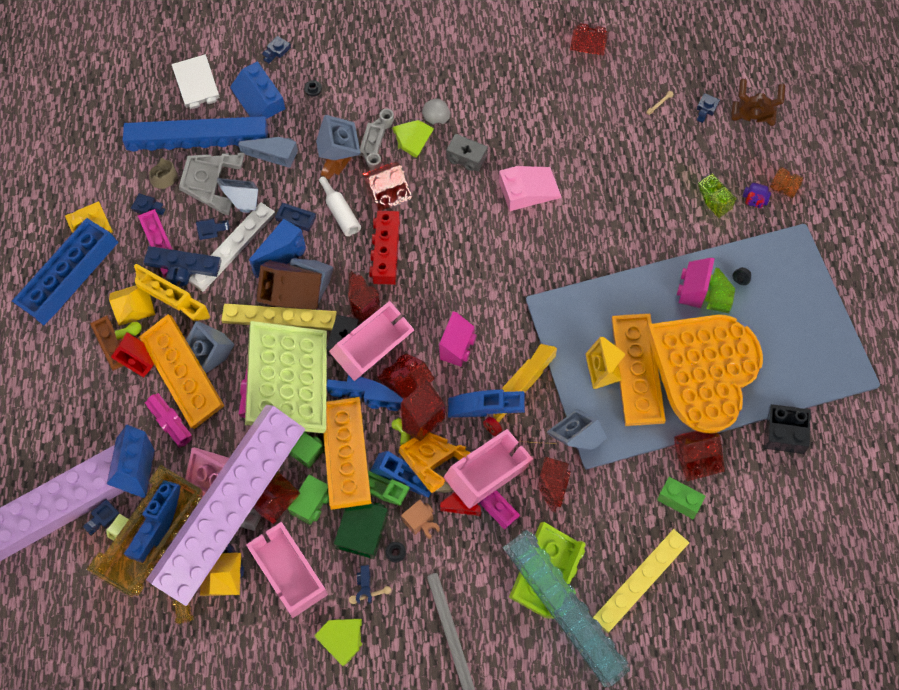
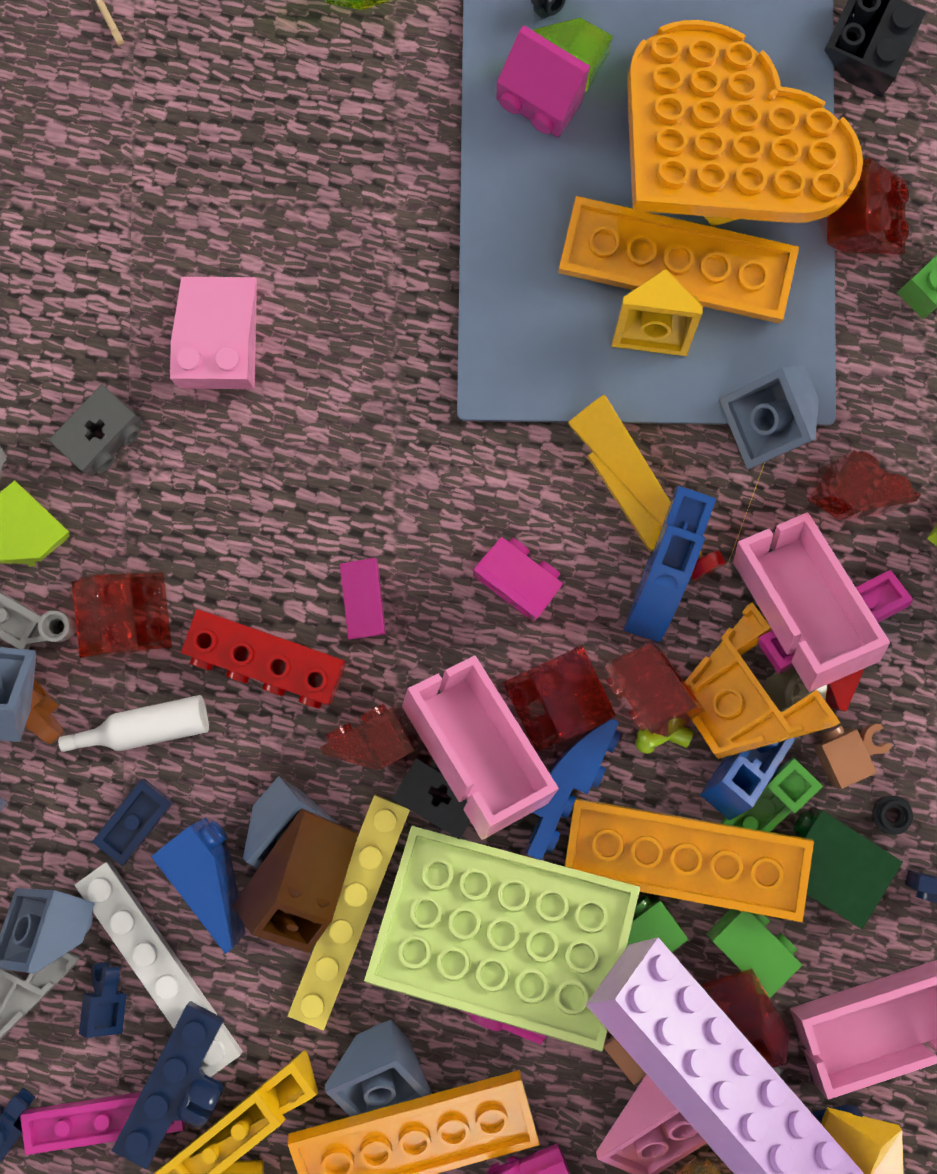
camera: 75 degrees left, 20 degrees up
(427, 282) = (363, 598): none -> dark pink slope

